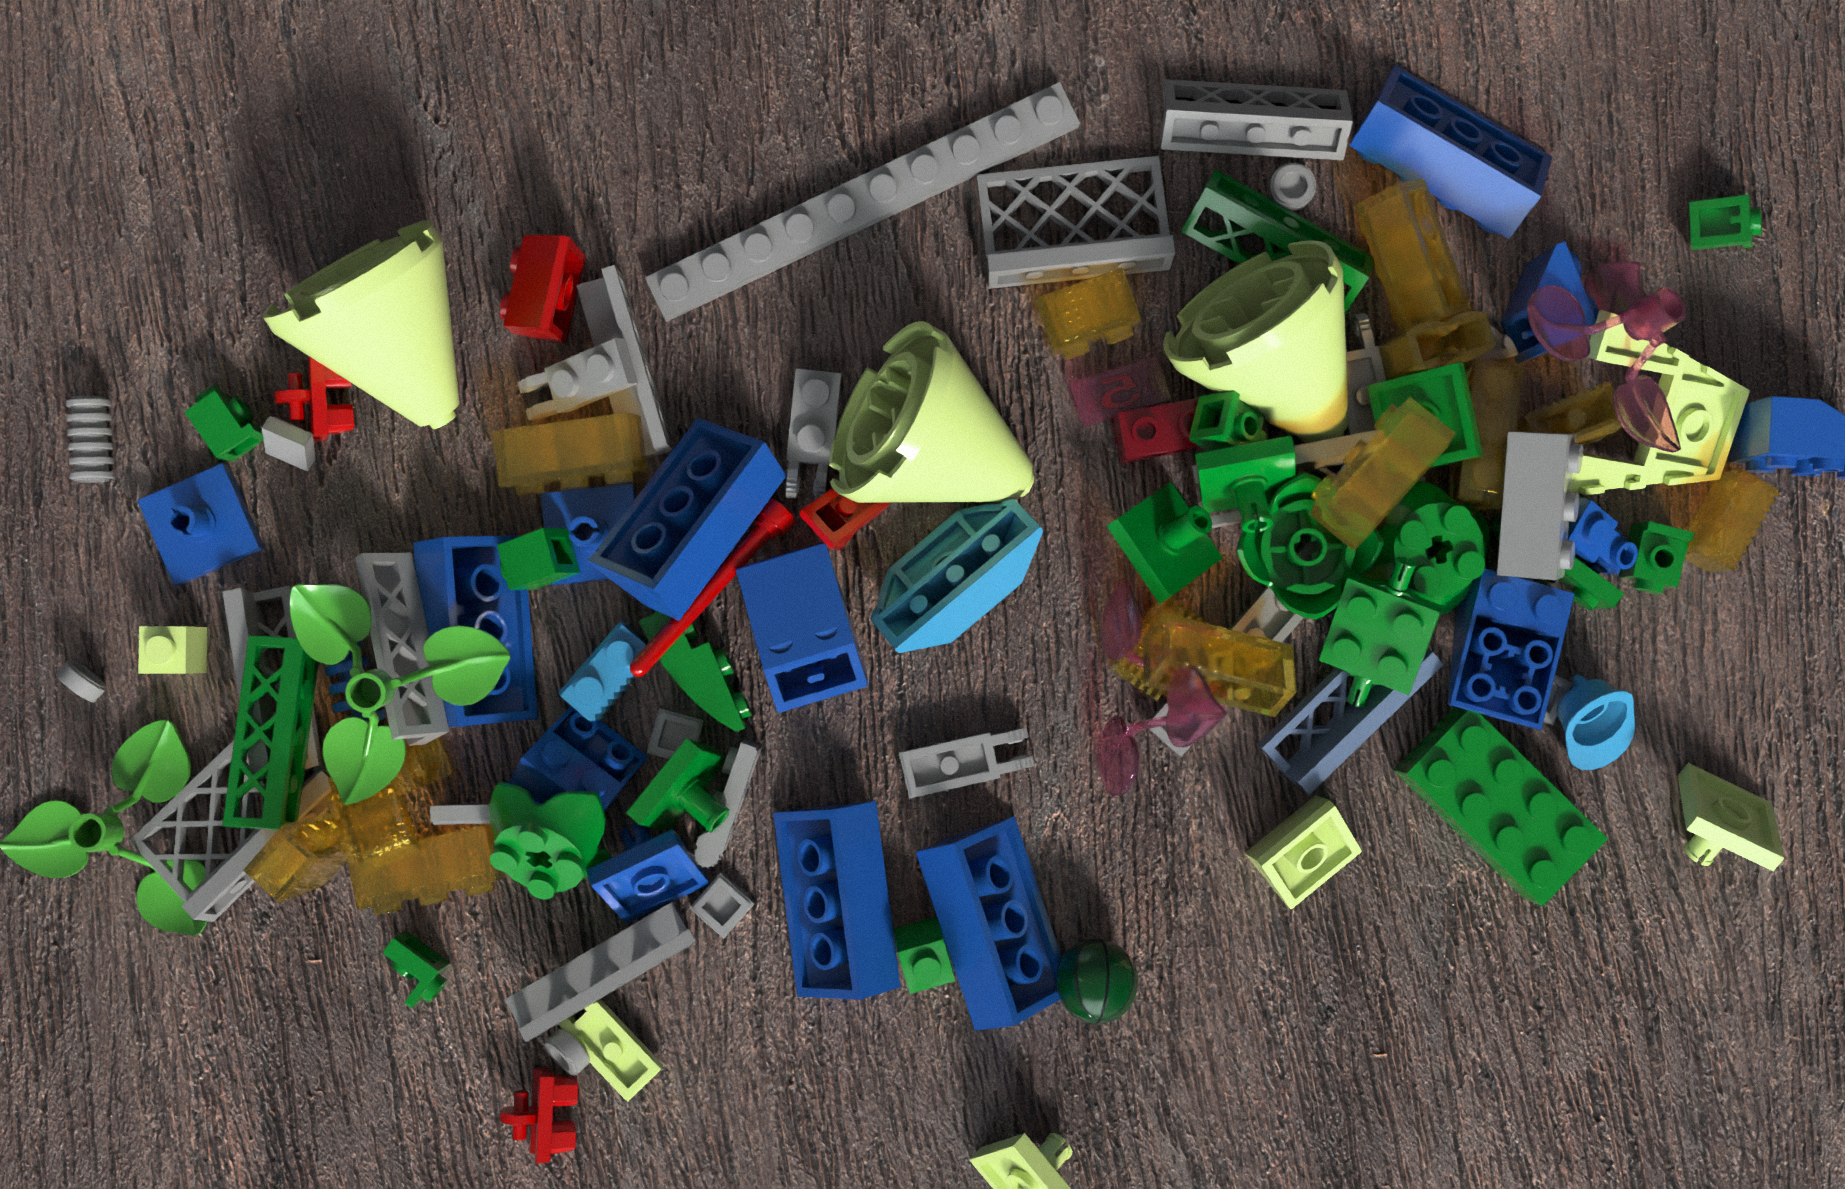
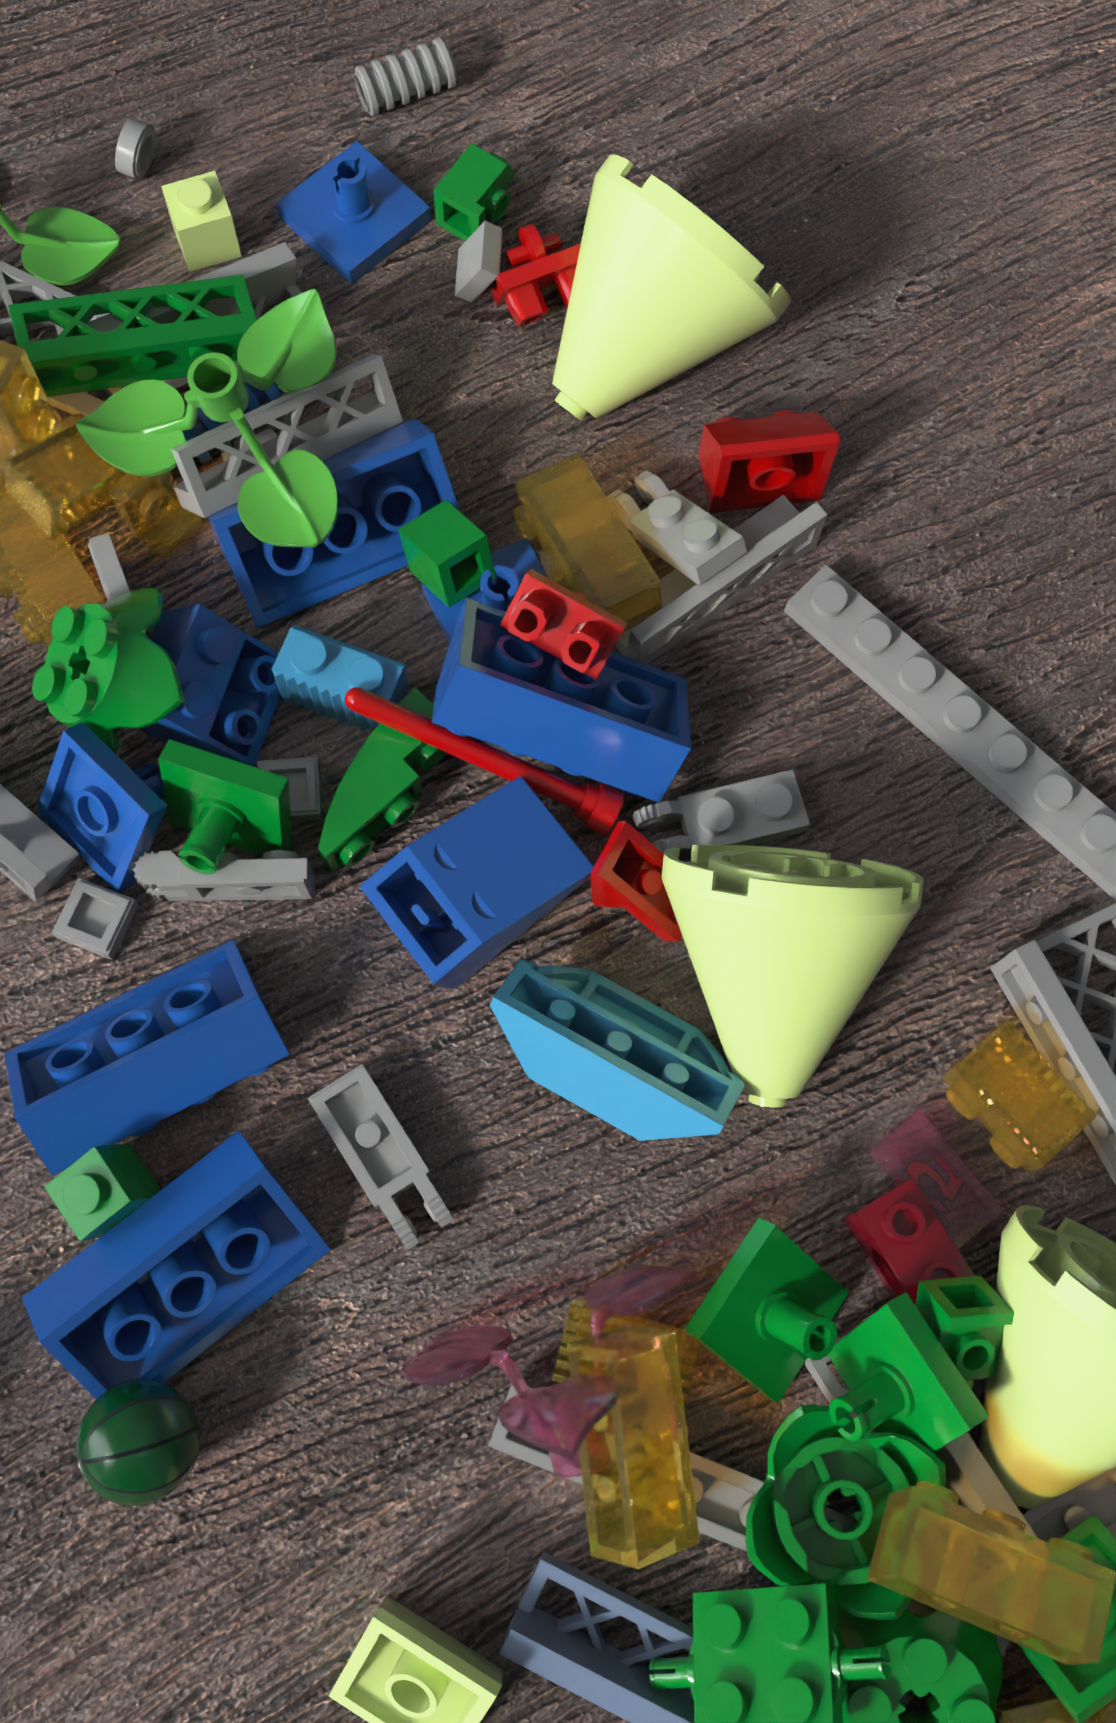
camera: 70 degrees right, 15 degrees down
(640, 499) = (563, 623): none -> red hips

